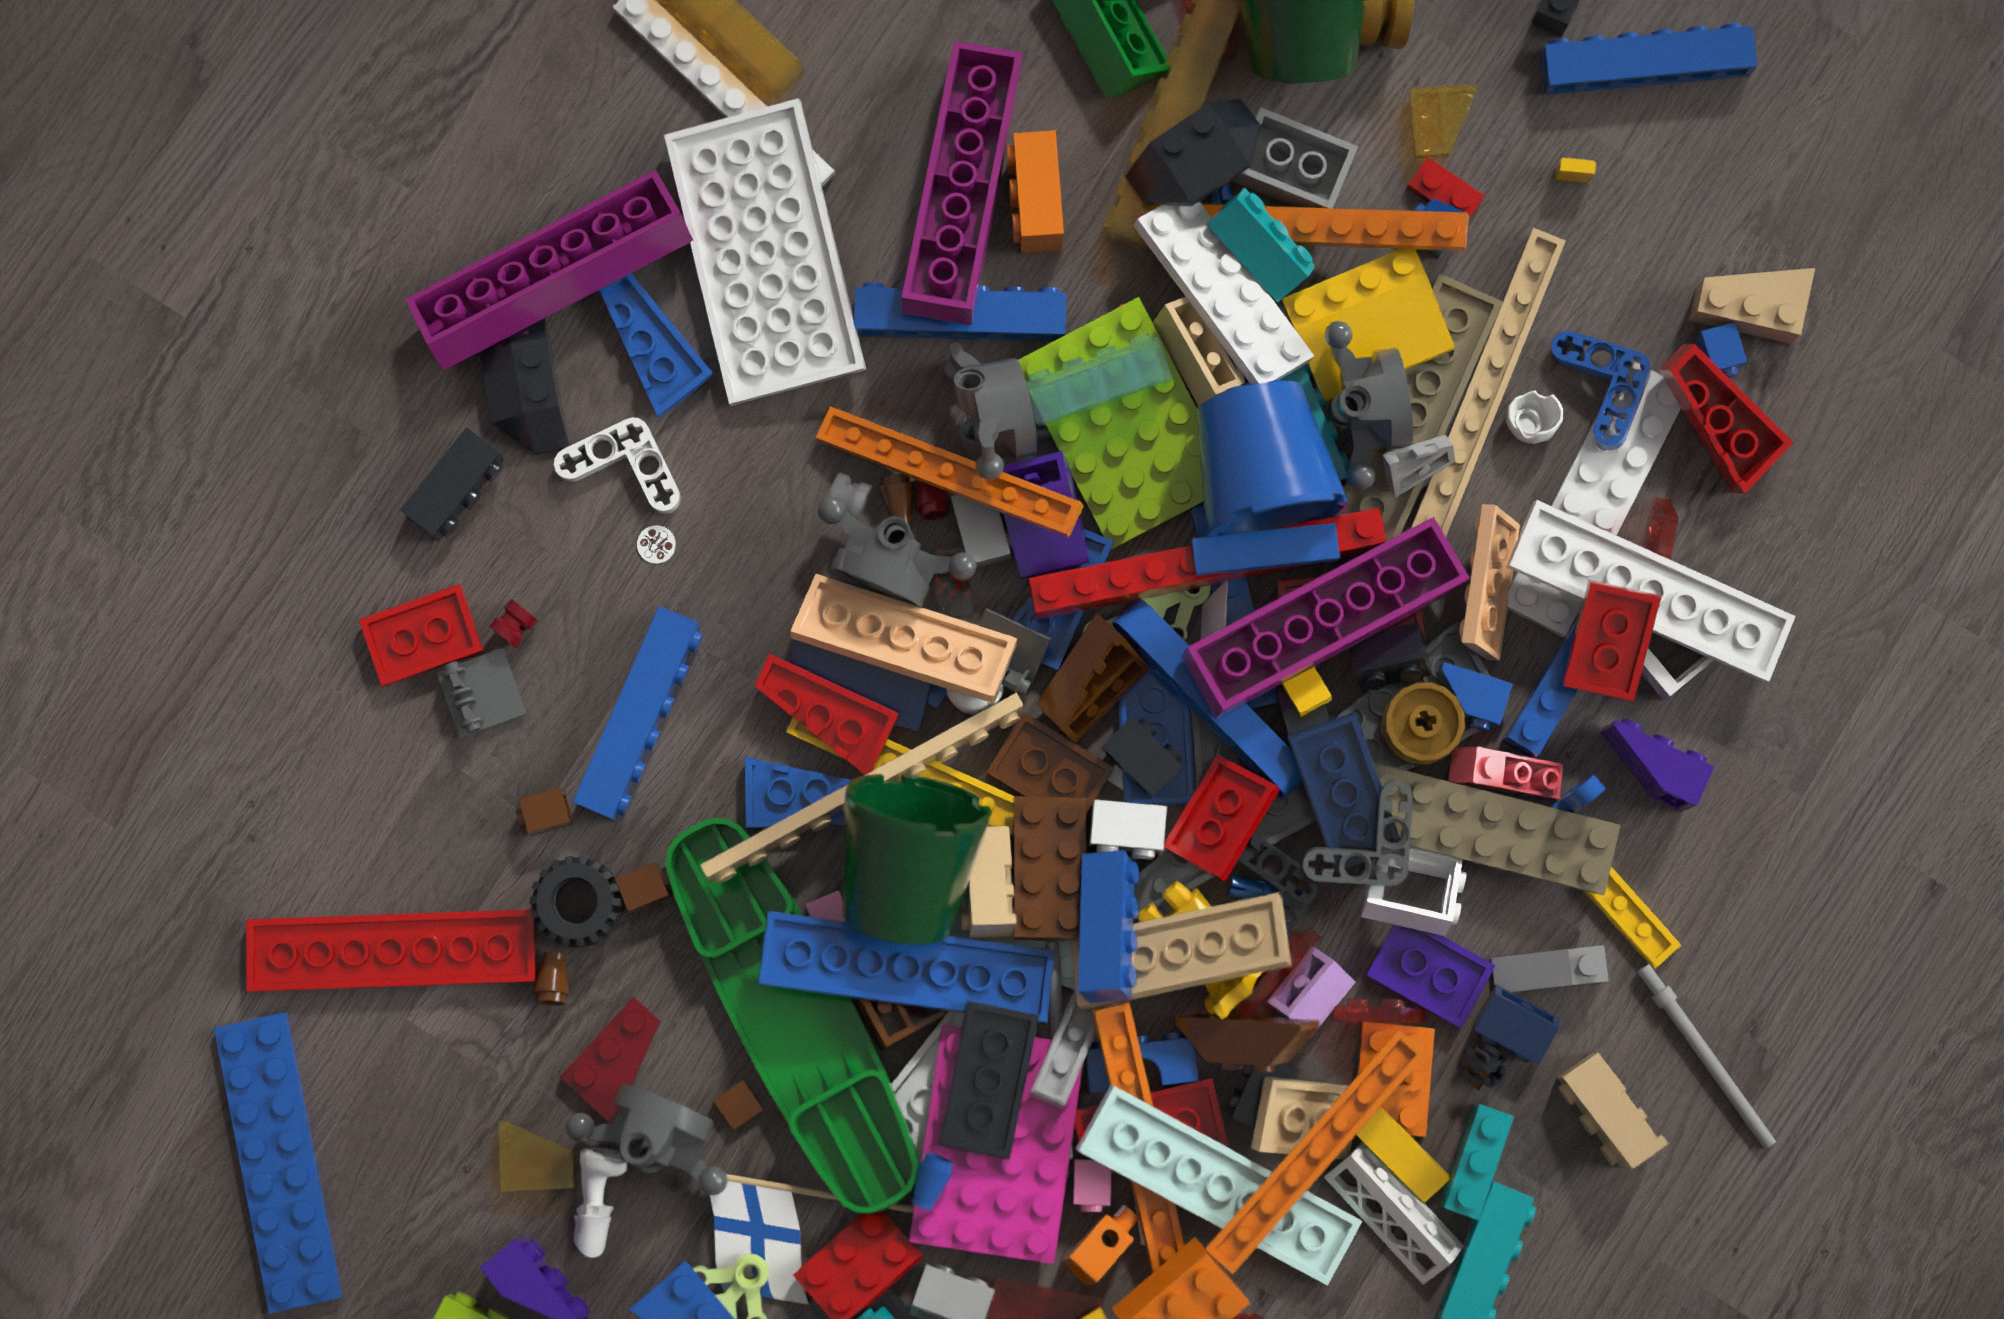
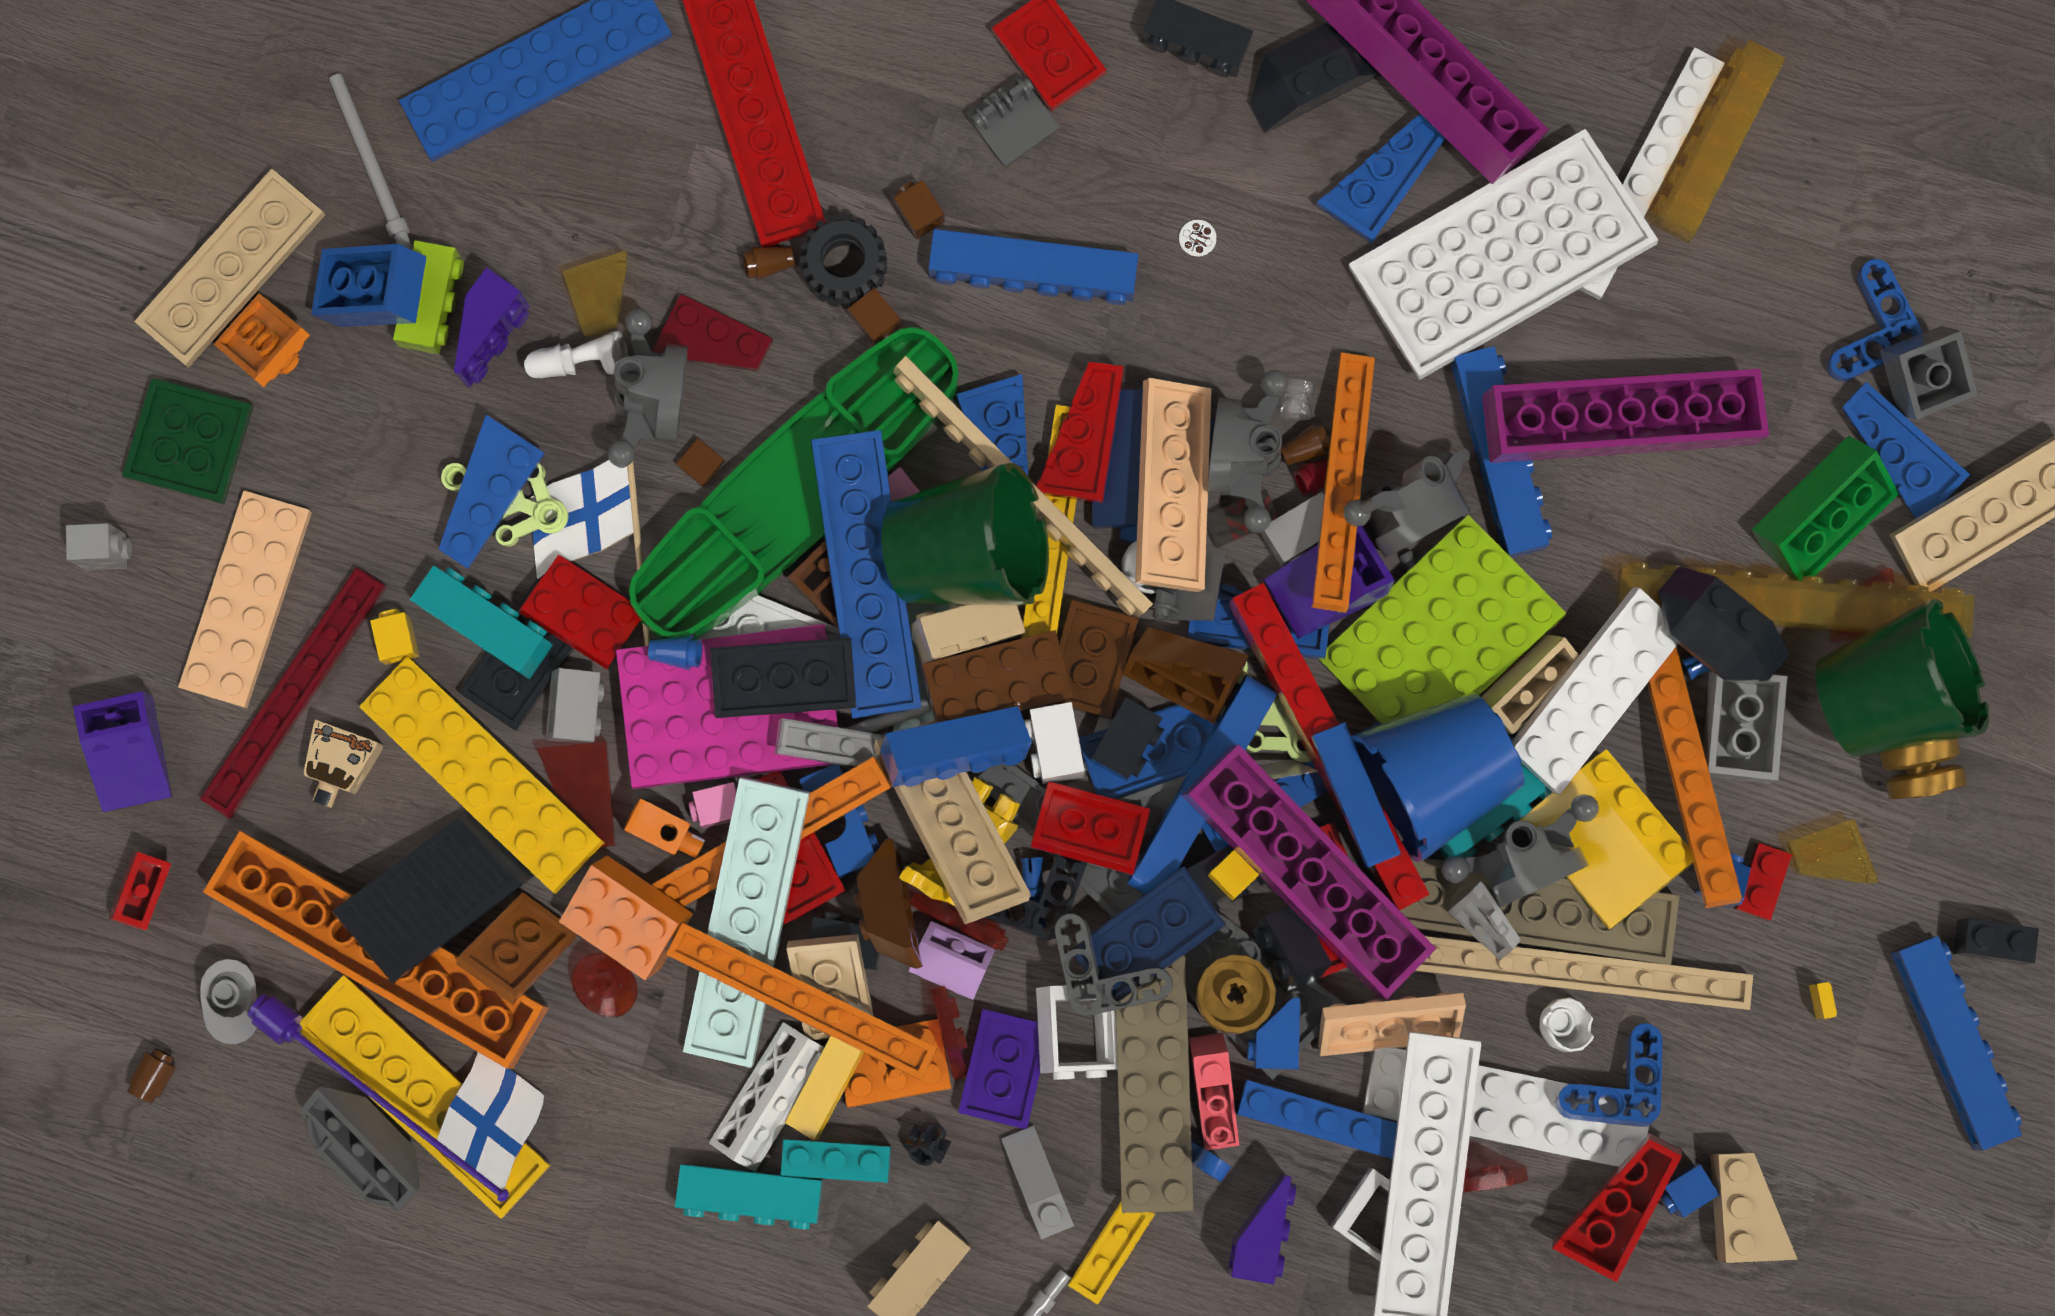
camera: 75 degrees right, 0 degrees up
(513, 623) = (1084, 129): dark red wheel -> none
(633, 451) = (1276, 192): white beam -> none
(1035, 192) = (1638, 488): orange brick -> none
(1097, 380) = (1472, 595): clear light blue brick -> none
(1261, 244) = (1652, 713): teal brick -> none
(1516, 1025) = (975, 1164): dark blue brick -> none
(1611, 640) = (1367, 1151): red plate -> none

